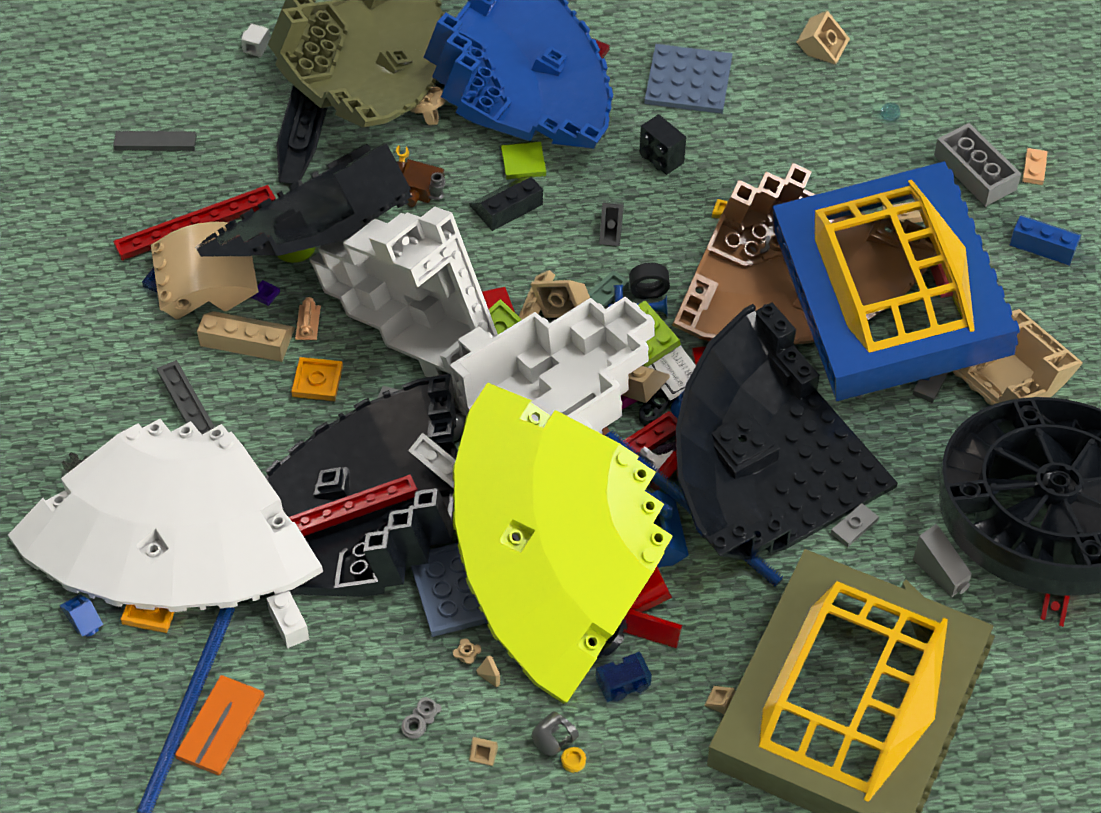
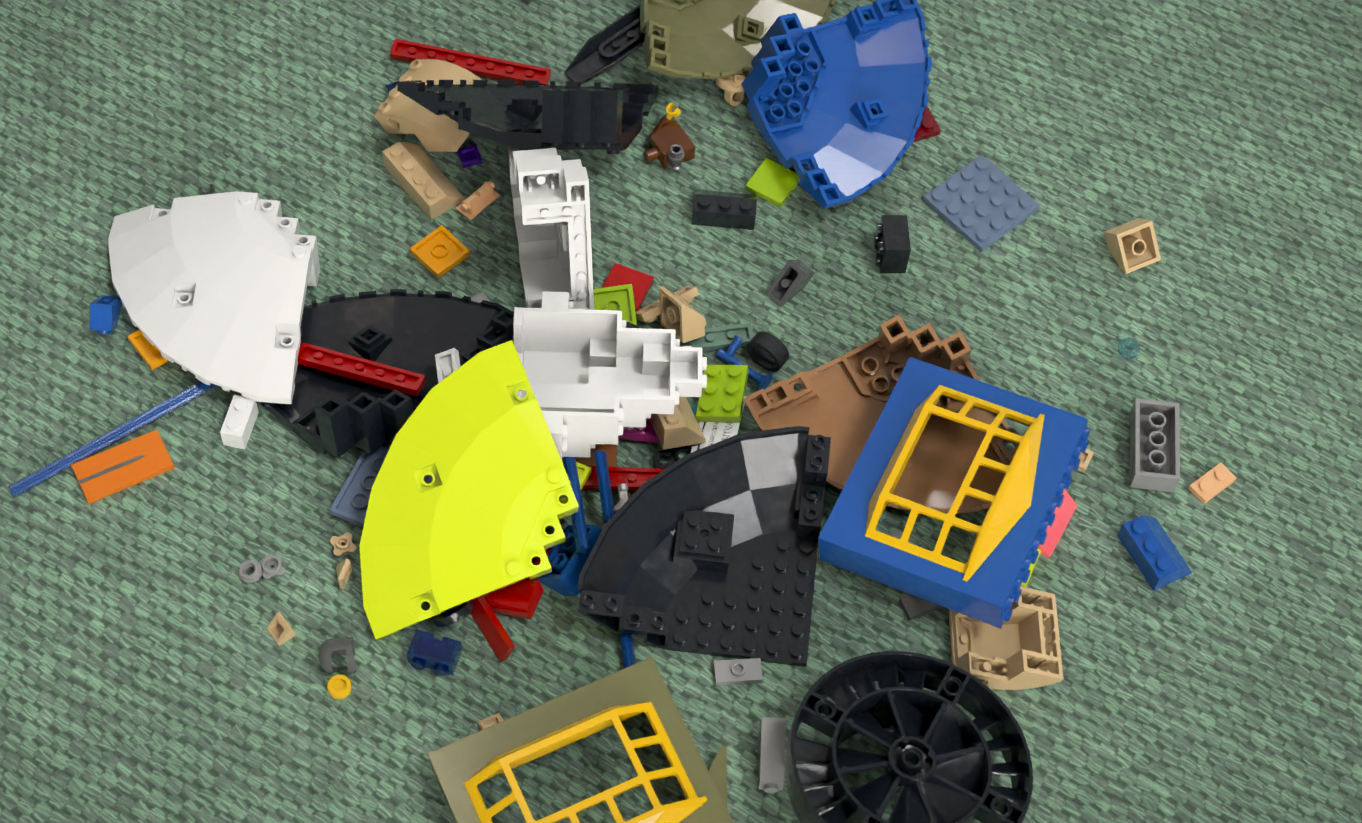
camera: 35 degrees right, 5 degrees up
(184, 396) = (329, 206): dark grey plate -> none

